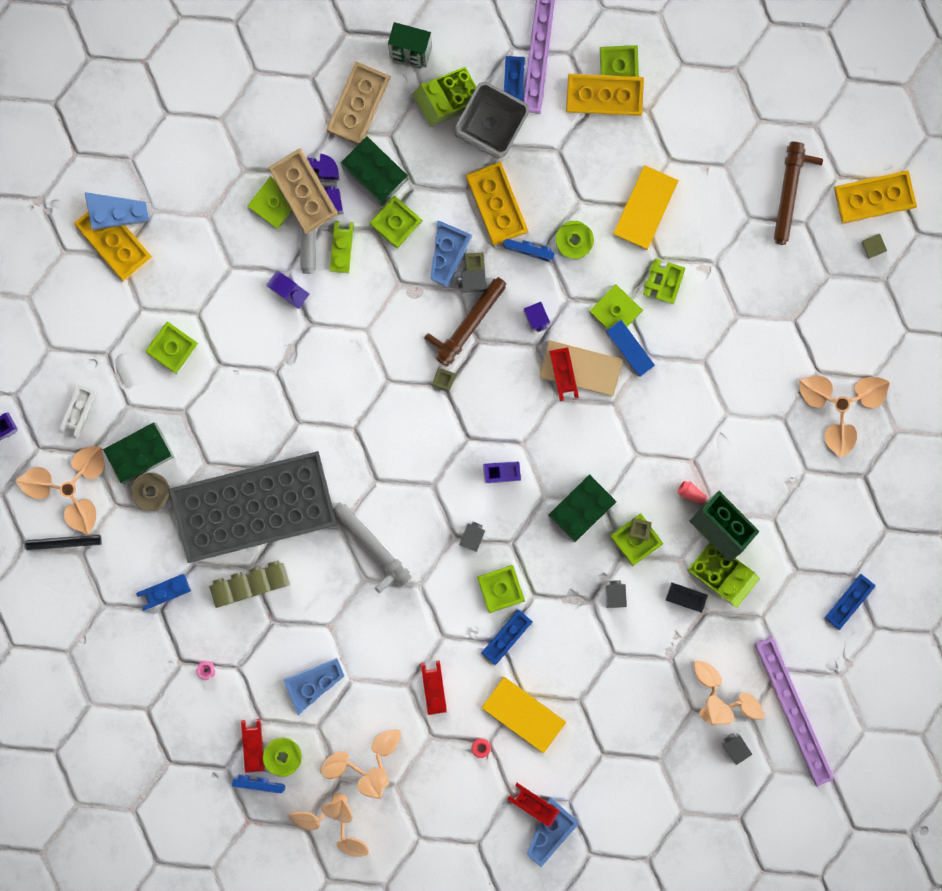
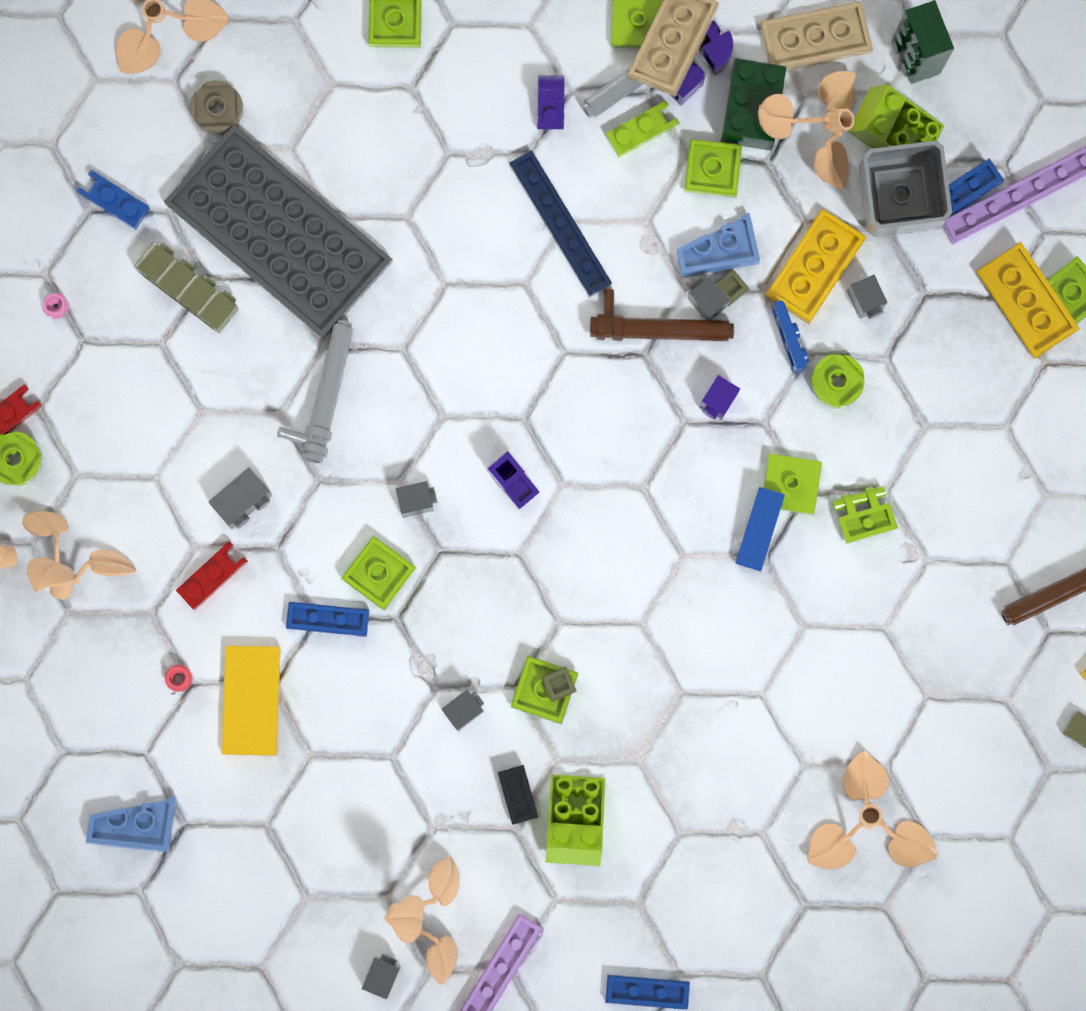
camera: 50 degrees right, 5 degrees down
(63, 542) = (93, 52): black axle -> none
(138, 453) = (250, 64): dark green brick -> none
(312, 683) = (121, 434): medium blue wing -> none
(365, 336) = (560, 223): none -> dark blue tile
(400, 639) = (241, 499): none -> flat silver brick
(402, 117) = (837, 93): none -> light nougat plant
(443, 379) = (573, 344): olive tile -> none
(535, 805) = (152, 785): red hinge -> none
(538, 187) = (867, 297): none -> dark grey brick
(563, 372) = (677, 471): red hinge -> none
(582, 508) = (536, 600): dark green brick -> none
(591, 369) = (697, 489): tan tile -> none
(645, 207) = (933, 435): yellow tile -> none
(690, 492) = (643, 716): coral cone -> none
(724, 526) = (631, 778): dark green brick -> none

